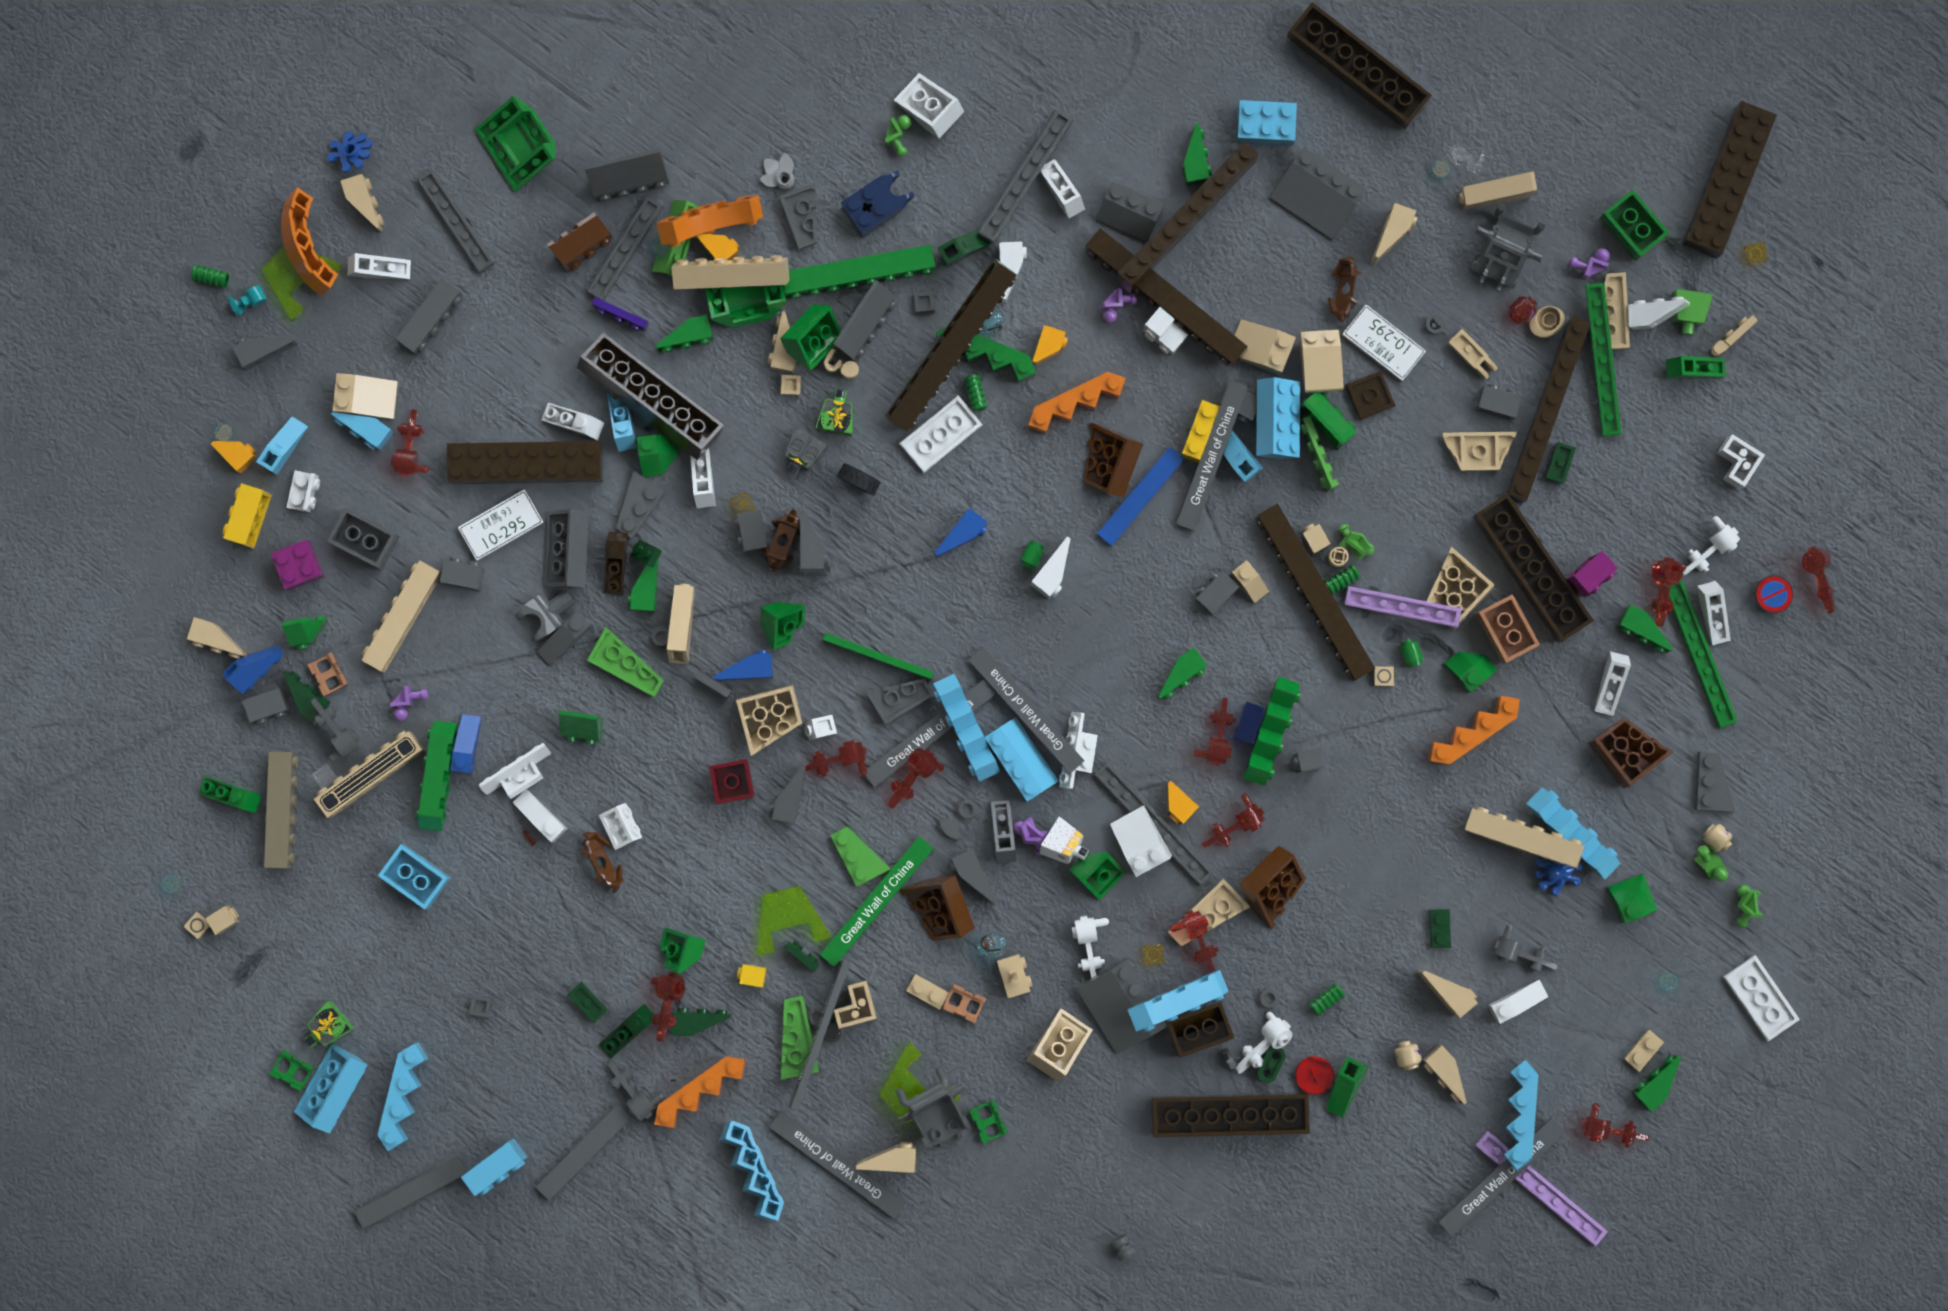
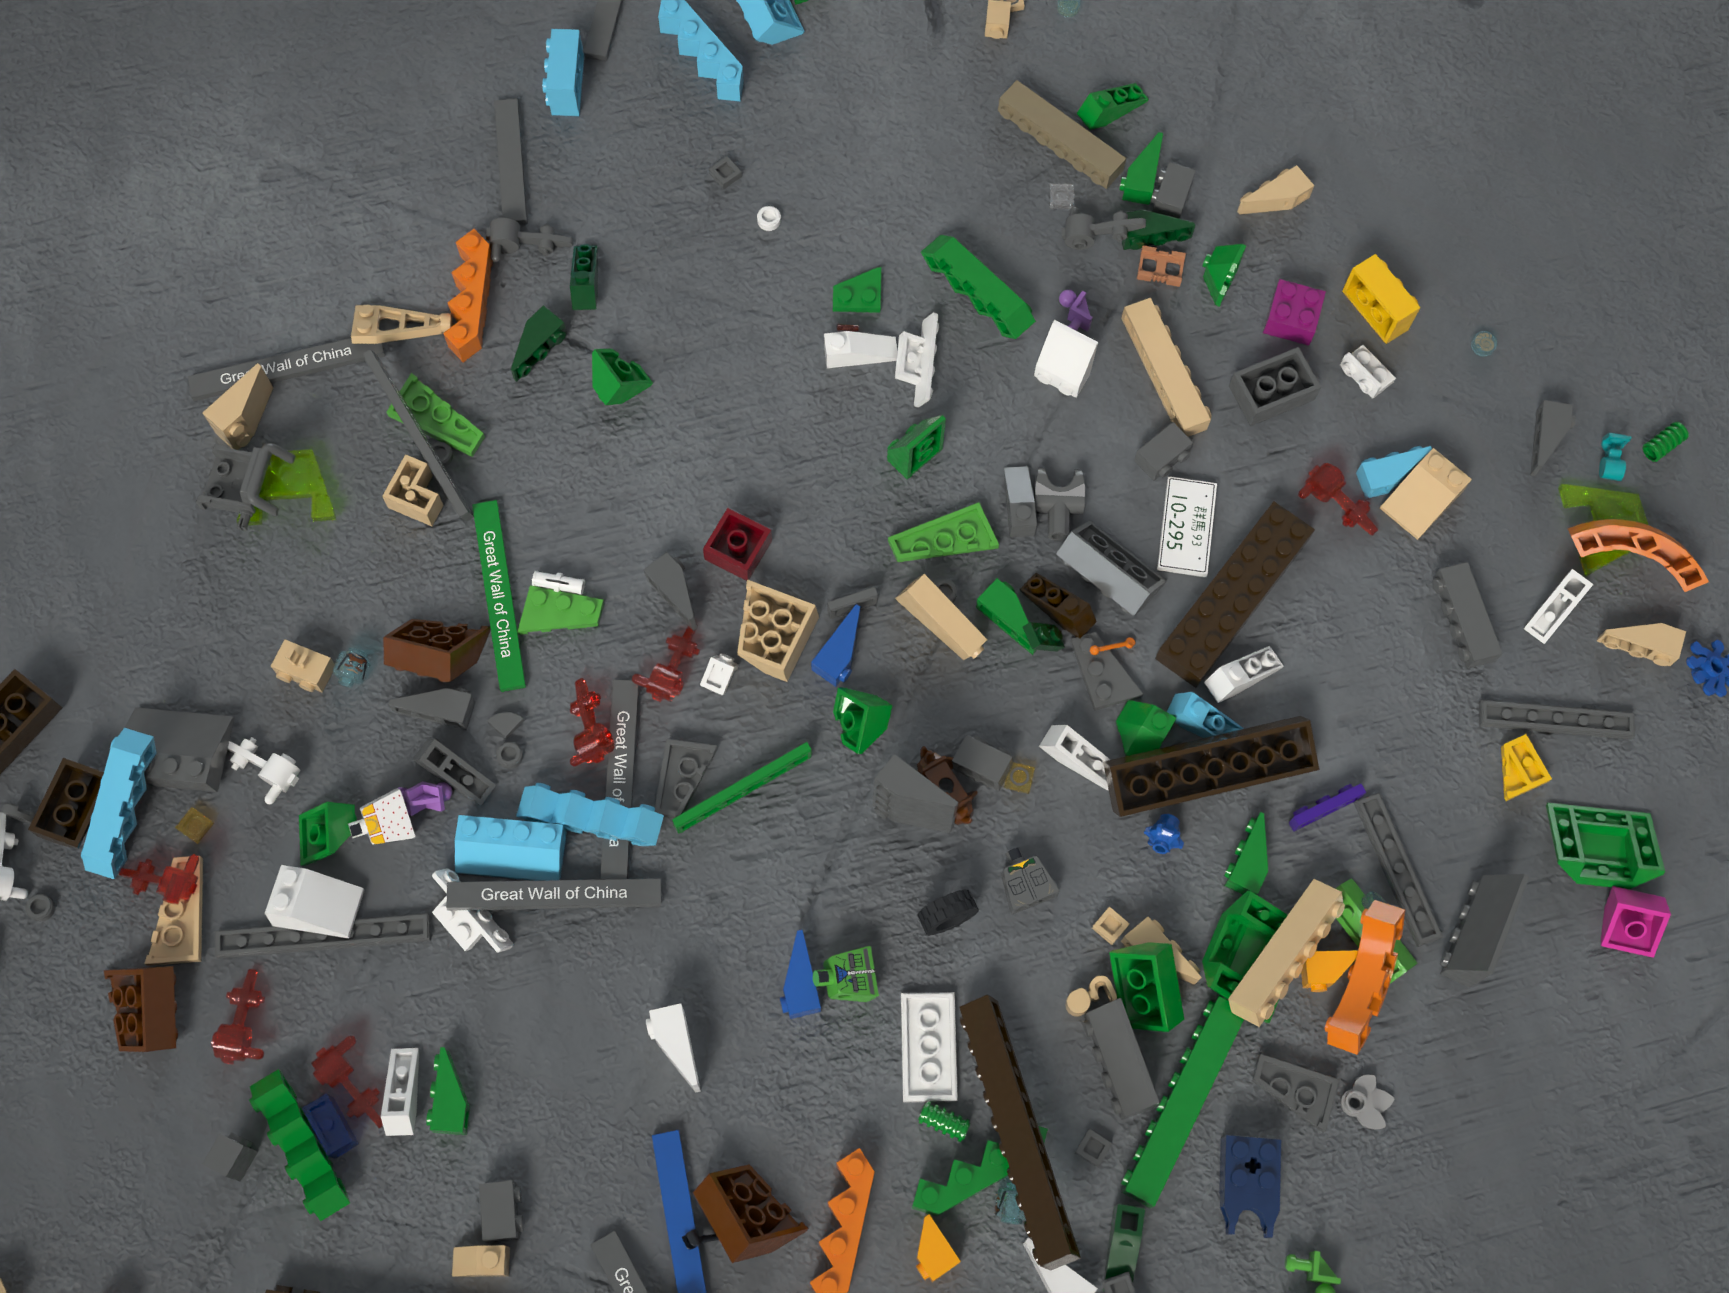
camera: 130 degrees right, 15 degrees down
(236, 454) = (1453, 336): light orange slope -> none
(248, 669) = (1223, 198): blue slope -> none
(274, 733) = (1141, 174): none -> green slope
(282, 445) = (1430, 381): medium azure slope -> none
(328, 1025) = (822, 36): torso -> none
(369, 774) = (1031, 231): brick -> none
(414, 876) = (896, 197): medium azure brick -> none
(451, 677) = (1066, 359): none -> white slope
(466, 744) = (986, 333): slope -> none
(491, 950) = (768, 218): none -> white tile
(499, 849) = (859, 293): none -> green wing
(505, 220) = (1521, 768): none -> yellow wing
(552, 95) = (1634, 921): none -> dark pink slope
(580, 243) = (1439, 820): reddish brown wedge -> none
(587, 1002) = (644, 262): dark green plate -> none
(593, 849) = (785, 373): reddish brown piece -> none
(605, 503) = (1129, 643): none -> orange hinge
(620, 826) = (785, 414): white bracket -> none
(668, 988) = (585, 336): clear red piece -> none
(711, 393) = (1165, 834): none -> blue rock
(752, 975) = (533, 422): yellow brick -> none
(759, 1179) = (363, 287): medium azure brick -> none
(770, 1138) = (368, 317): none -> tan plate
(786, 910) = (566, 506): clear neon green wing -> none
(796, 949) = (510, 481): dark green plate -> none
(833, 1033) = (411, 450): clear smoke plate -> none
(836, 415) = (1038, 948): torso -> none
(840, 868) = (543, 580): none -> white pin
(927, 991) = (367, 574): tan plate -> none
(938, 507) = (849, 976): none -> bright green torso
(961, 1008) = (320, 591): nougat piece -> none
(993, 1119) = (195, 524): green piece -> none
(1032, 555) = (714, 1037): green brick -> none
(1059, 1045) = (195, 657): tan slope -> none
(1147, 476) = (693, 1239): none -> black hand
(1179, 804) = (314, 978): light orange slope -> none
(1199, 702) = (400, 1092): none -> white slope

